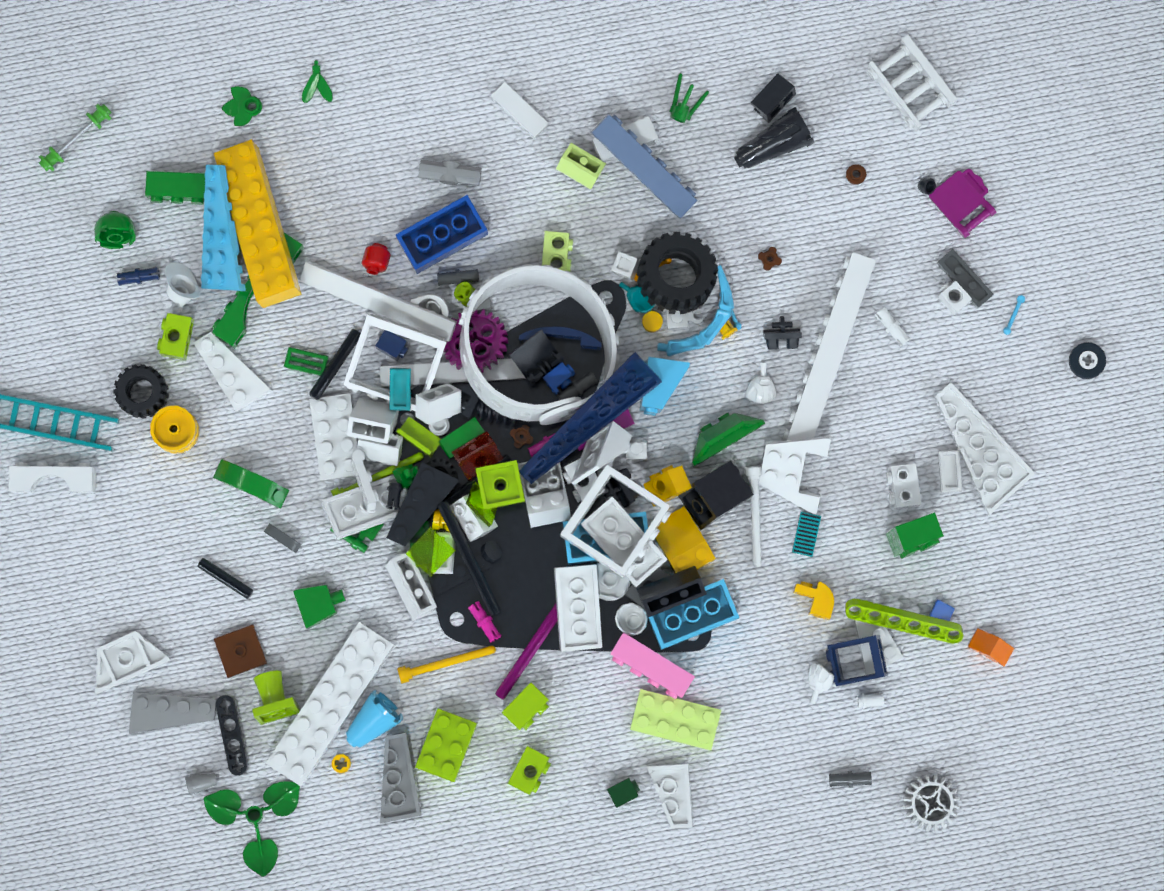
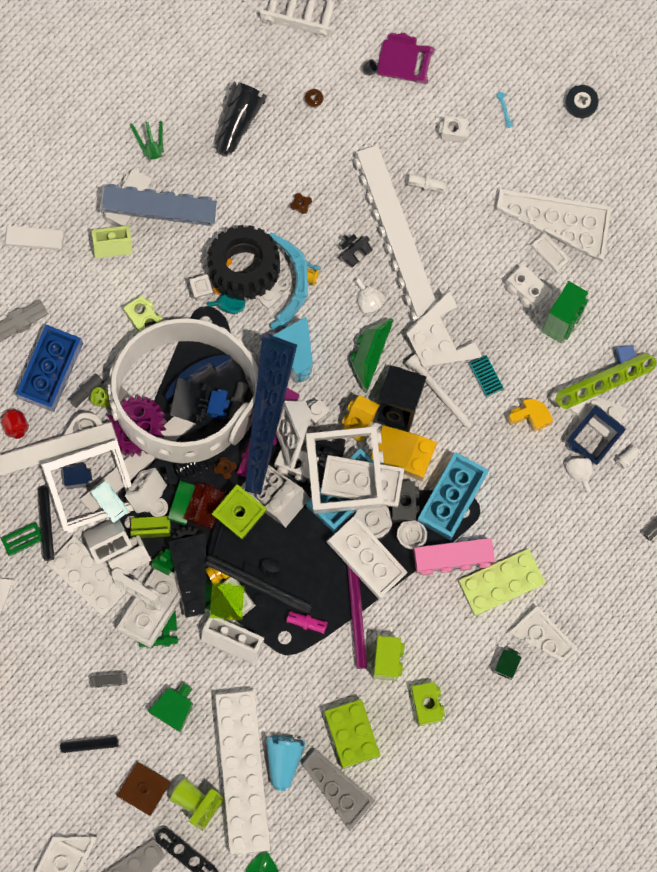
camera: 40 degrees left, 5 degrees down
(251, 483) = (51, 658): green arch -> none
(344, 769) = (279, 808): yellow bush -> none
(383, 473) = (145, 575): lime piece -> none
(394, 495) = (167, 582): black pin -> none
(407, 673) = (281, 705): yellow piece -> none
(470, 523) = (237, 551): white brick -> none
(475, 504) = (233, 540): clear neon green piece -> none
(652, 321) = (253, 313): yellow tile -> none
(671, 591) = (425, 489): black brick -> none
(773, 97) = (211, 89): black hinge -> none
(959, 271) = (440, 108): dark grey plate -> none

